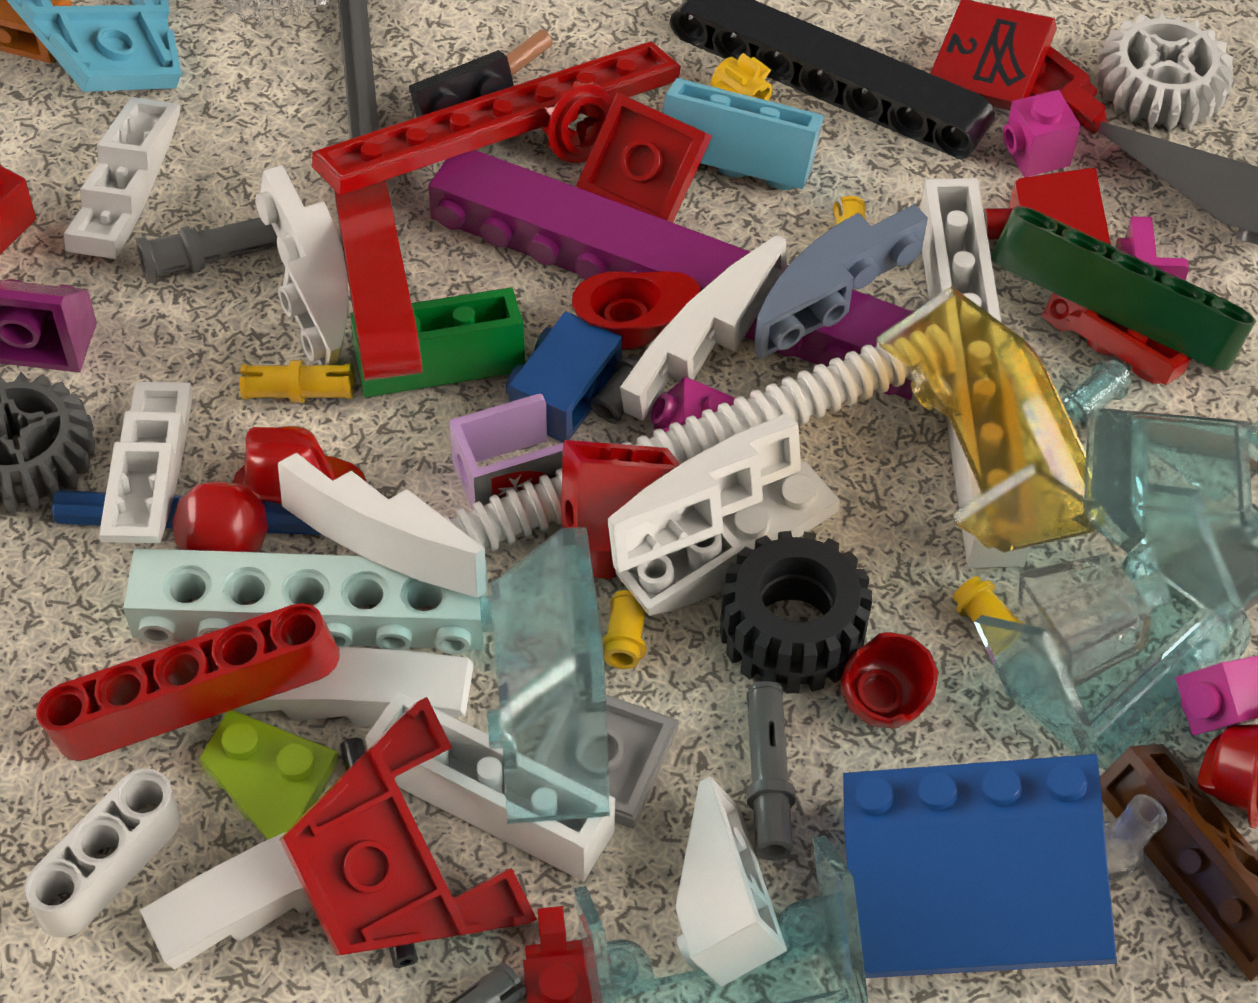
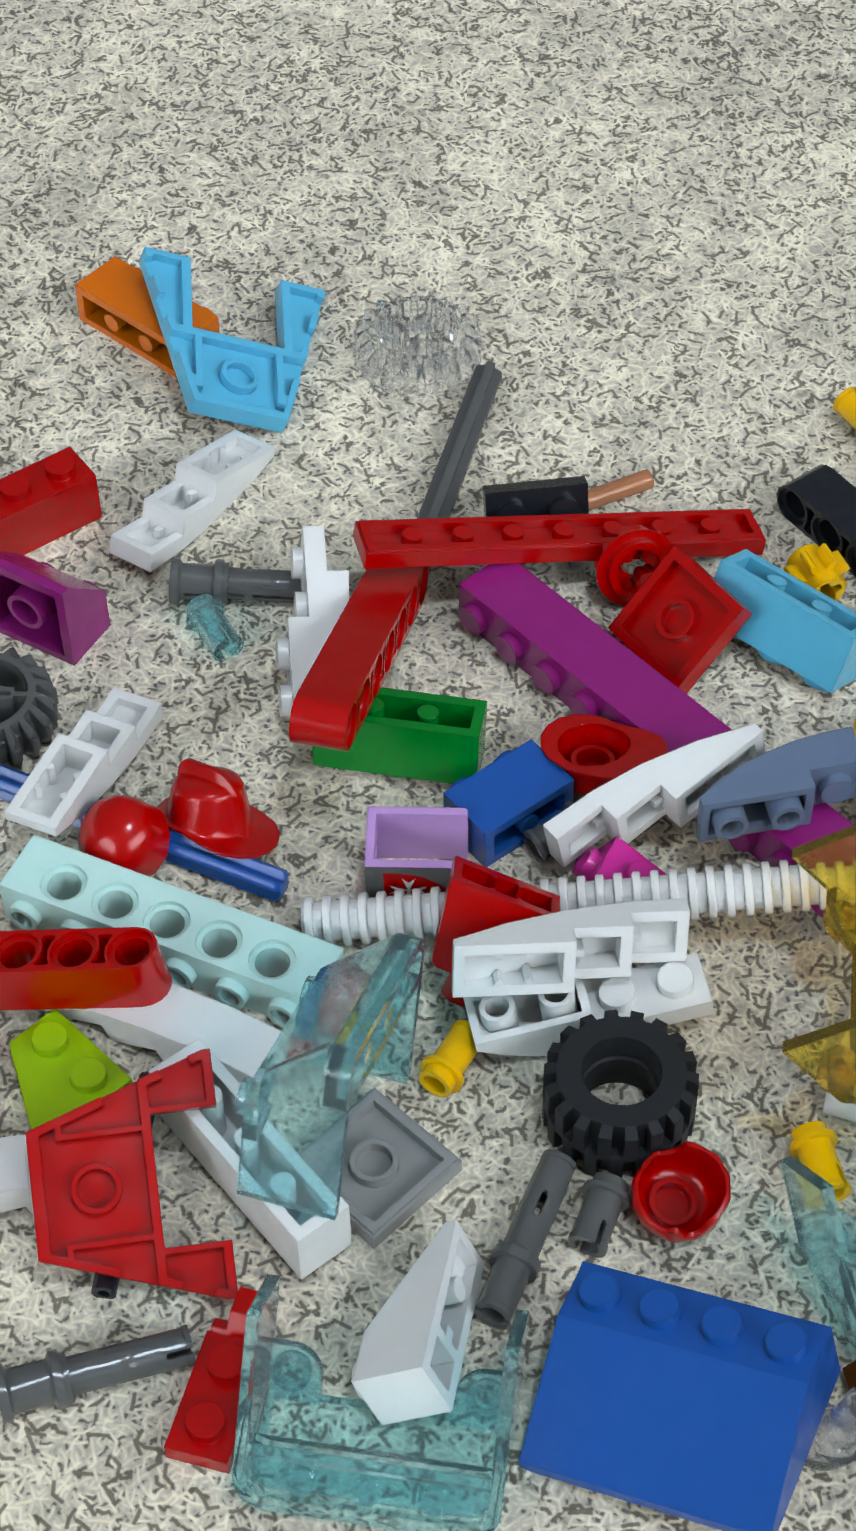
camera: 25 degrees right, 5 degrees down
(194, 286) = (207, 617): none -> clear light blue pin
(297, 381) = (255, 730): yellow pin -> none
(391, 532) = (259, 889): white slope -> none
(822, 719) = (604, 1200): none -> dark grey pin

